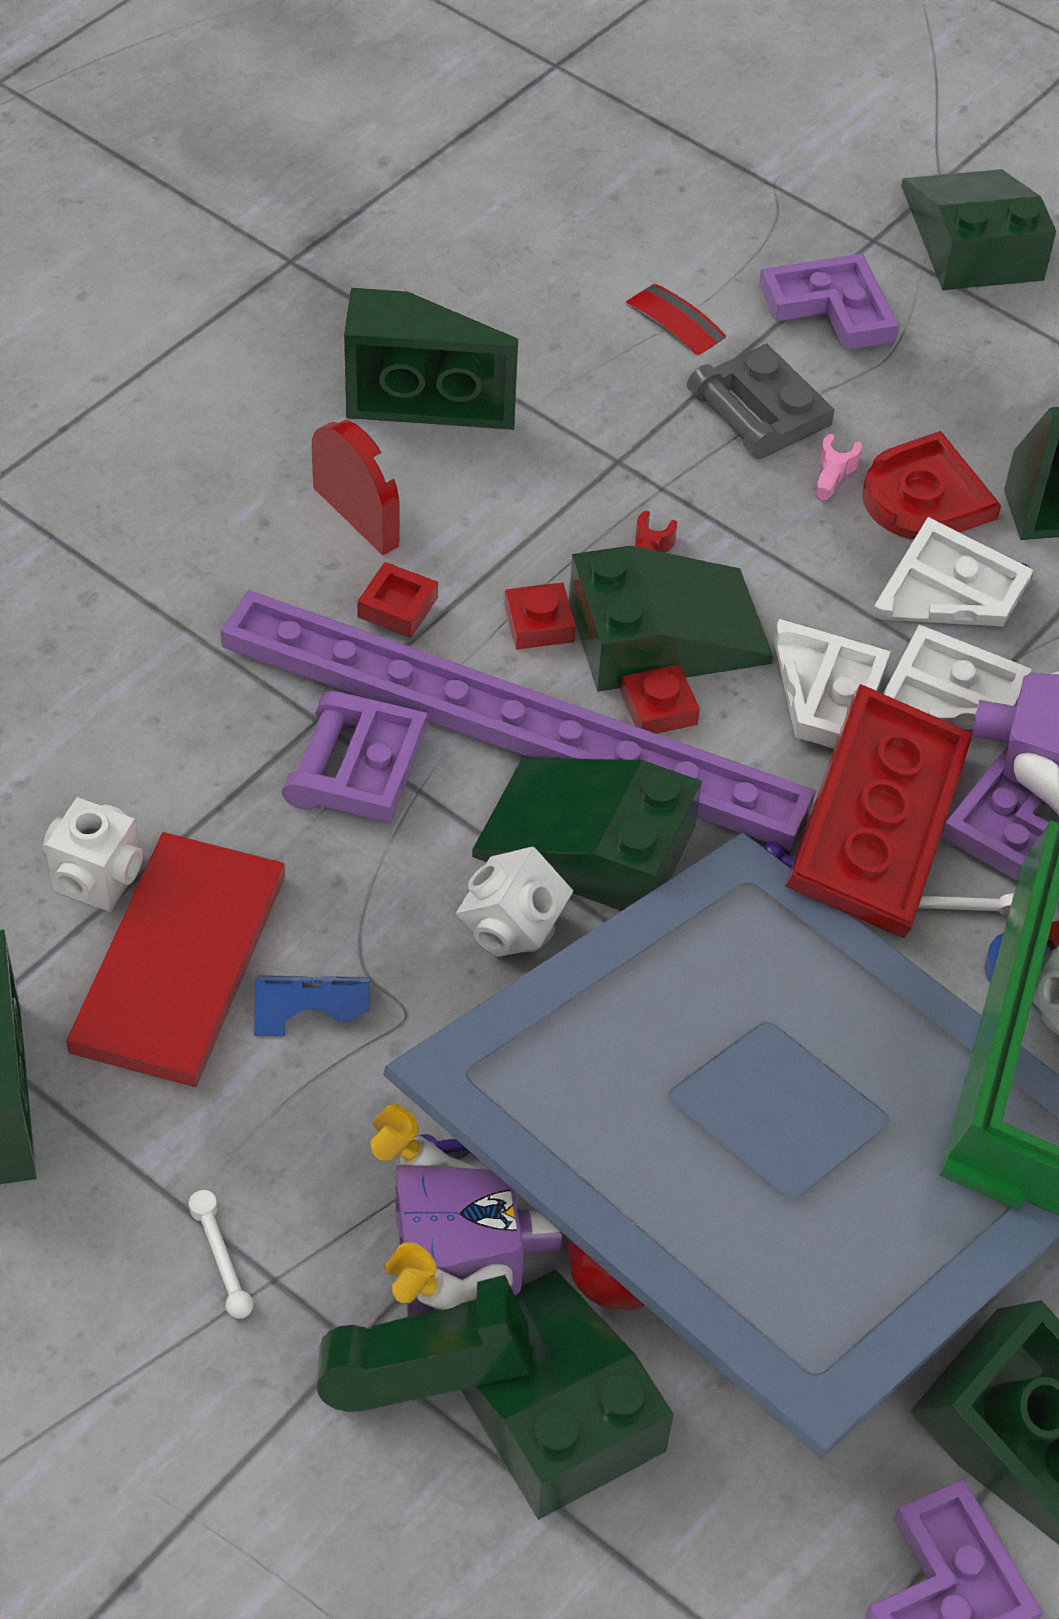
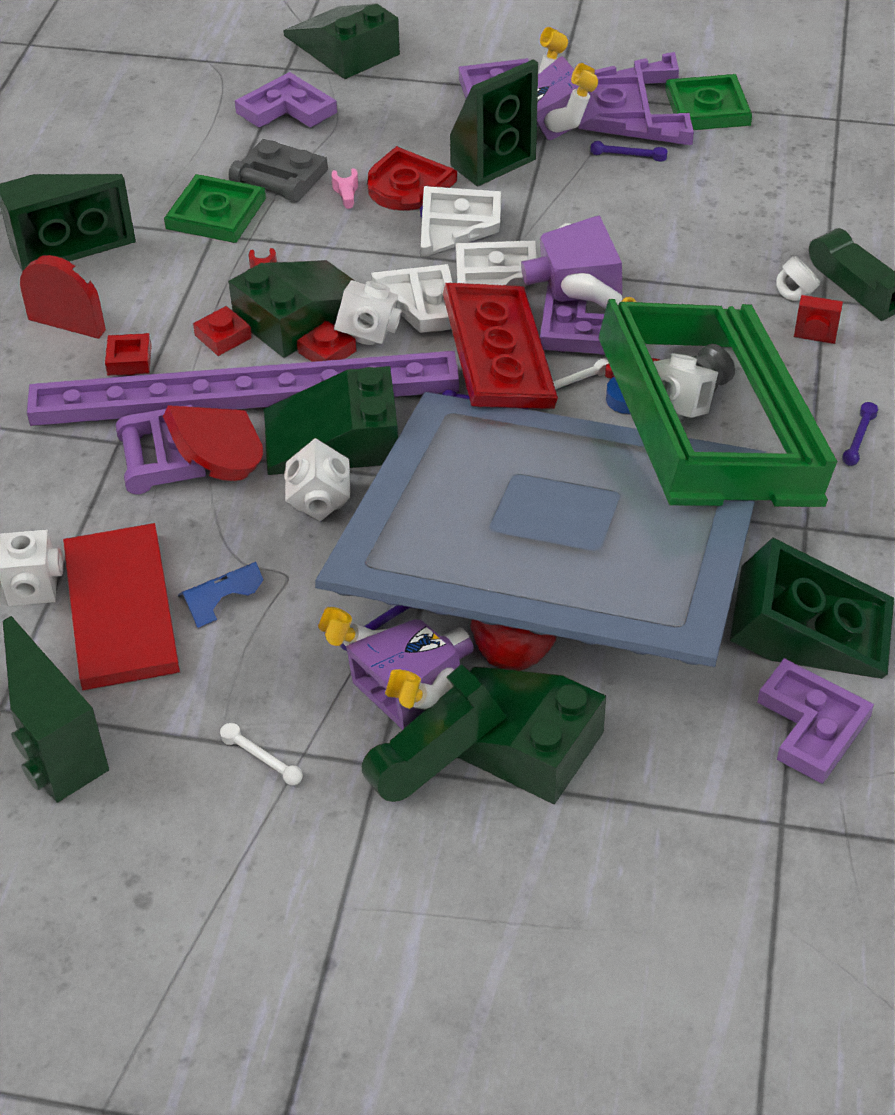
camera: 25 degrees left, 5 degrees down
(425, 781) = (215, 440): none -> red tile
(643, 424) = (215, 208): none -> green tile
(678, 317) = (197, 146): red sticker -> none
(732, 679) = (368, 312): none -> white brick

